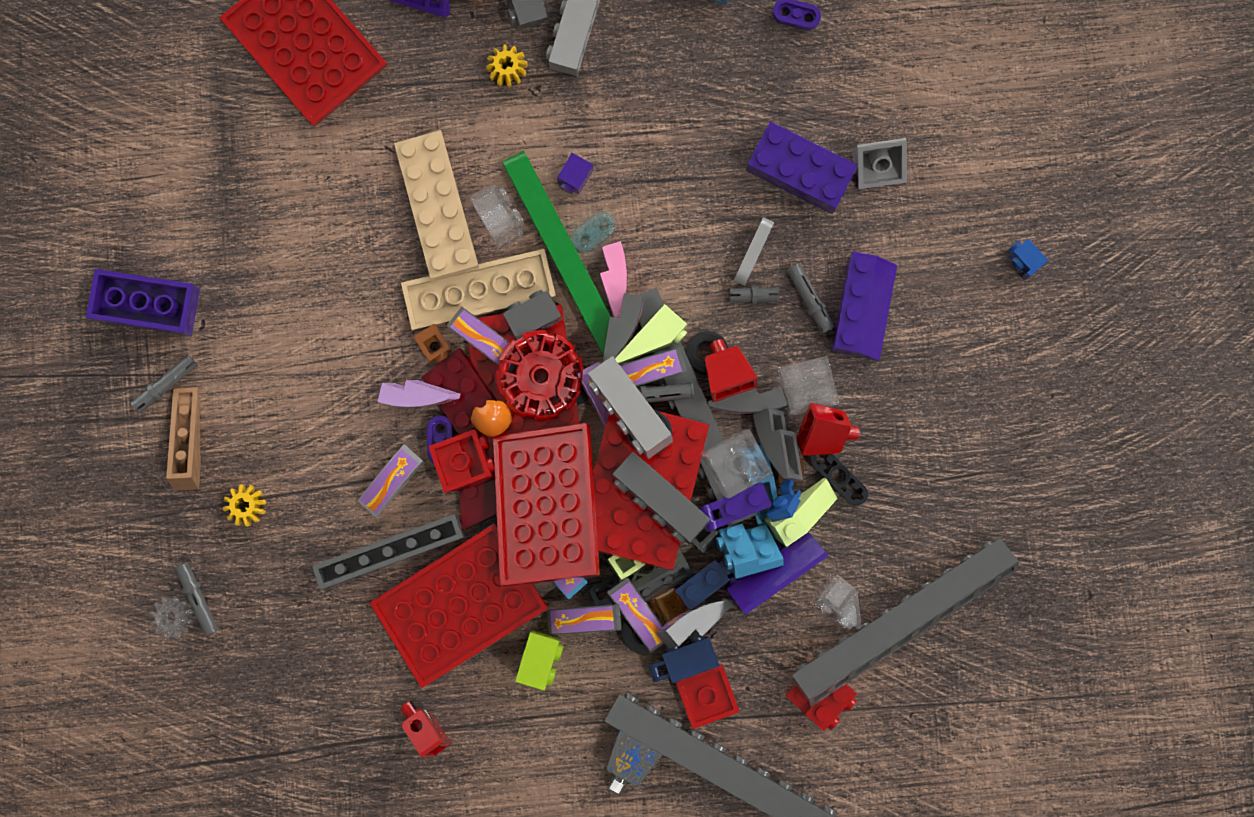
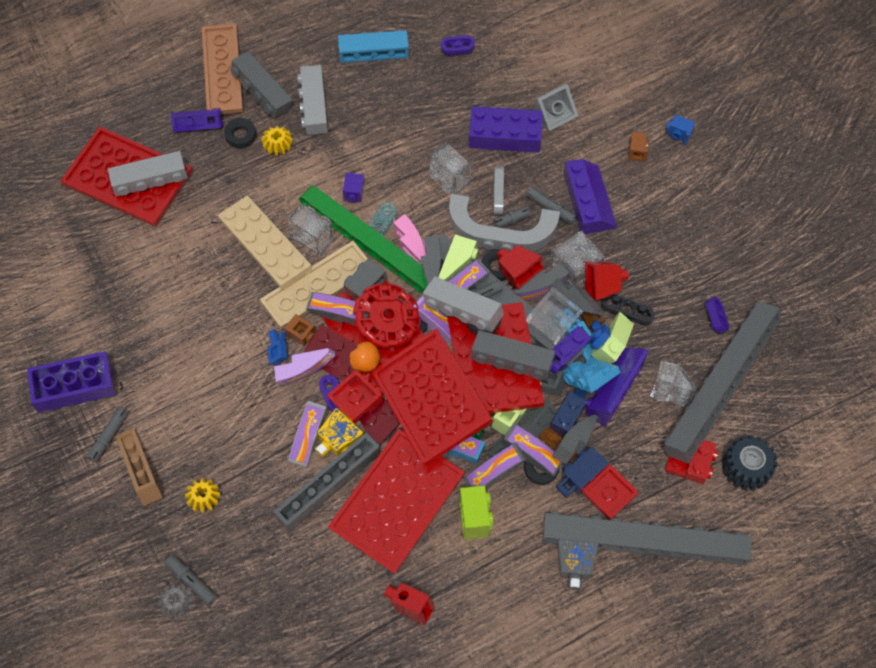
camera: 25 degrees left, 20 degrees down
(326, 55) = (147, 173): none -> light grey brick
(397, 356) = (277, 350): none -> blue plate
(423, 496) = (337, 434): none -> torso
(466, 19) = (242, 142): none -> black tyre
(702, 200) = (449, 169): none -> clear brick
(729, 322) = (500, 238): none -> light grey arch
(885, 732) = (749, 463): none -> black wheel
(943, 531) = (717, 314): none -> dark purple plate
(960, 260) = (638, 147): none -> dark orange brick

